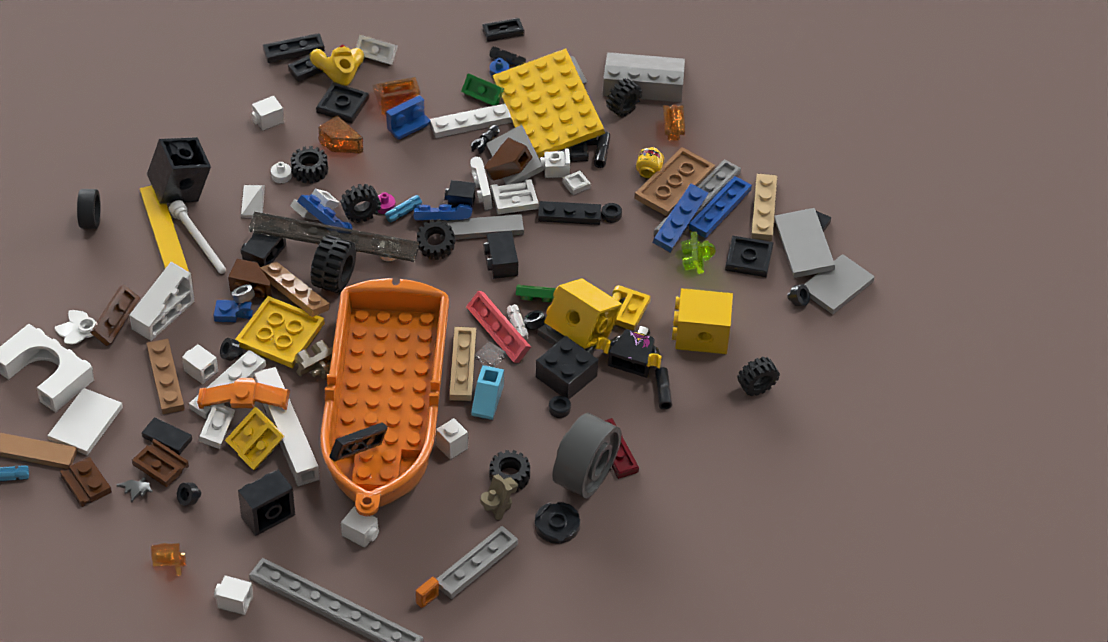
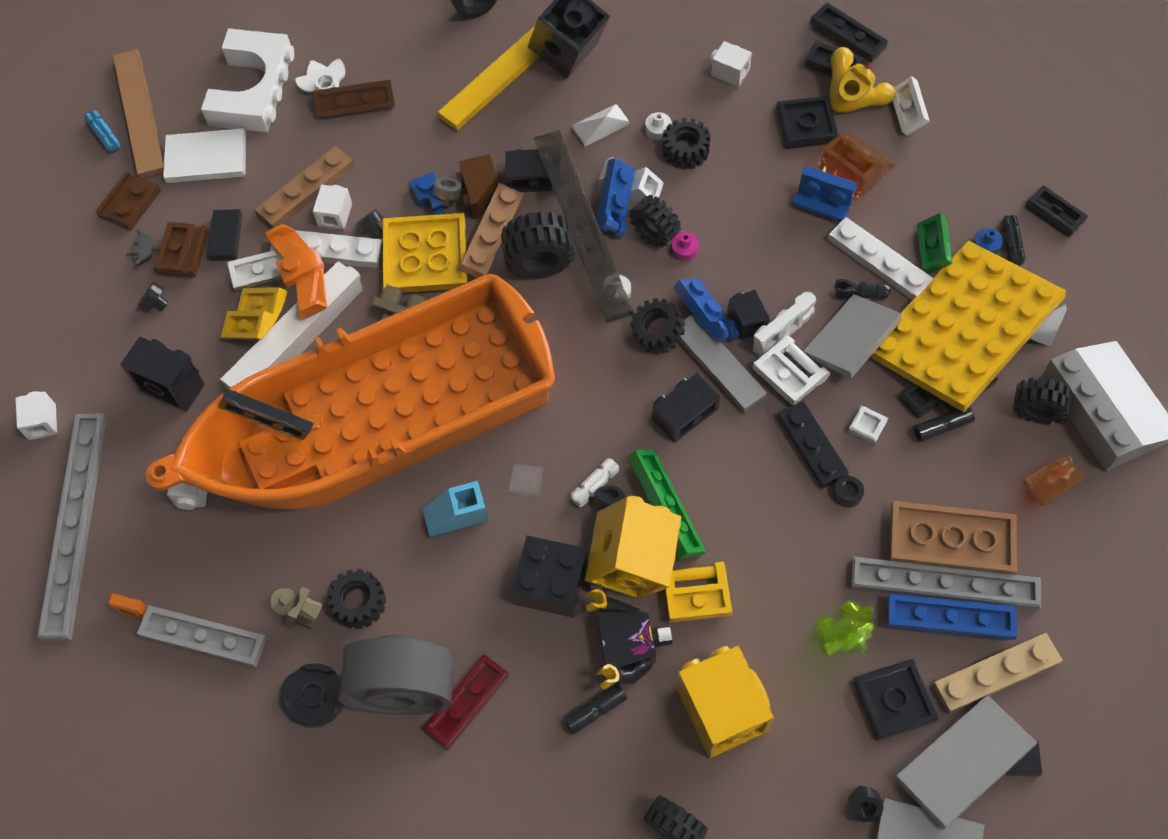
camera: 65 degrees right, 15 degrees up
(163, 302) = (390, 127): white wedge -> none
(168, 554) = (62, 334): clear orange bracket -> none
(179, 211) = (534, 70): white piece -> none
(340, 137) = (747, 145): clear orange slope -> none
(403, 208) = (689, 268): dark azure axle -> none
(451, 438) = (365, 509): white brick -> none
(463, 364) = (493, 456): tan plate -> none
(498, 327) = (571, 462): coral plate -> none
(508, 160) = (832, 330): reddish brown slope -> none
(556, 164) = (877, 393): white brick -> none
(559, 406) = (494, 601): black tile -> none
(649, 162) = (960, 490): yellow head -> none
(680, 217) = (891, 577): blue plate -> none

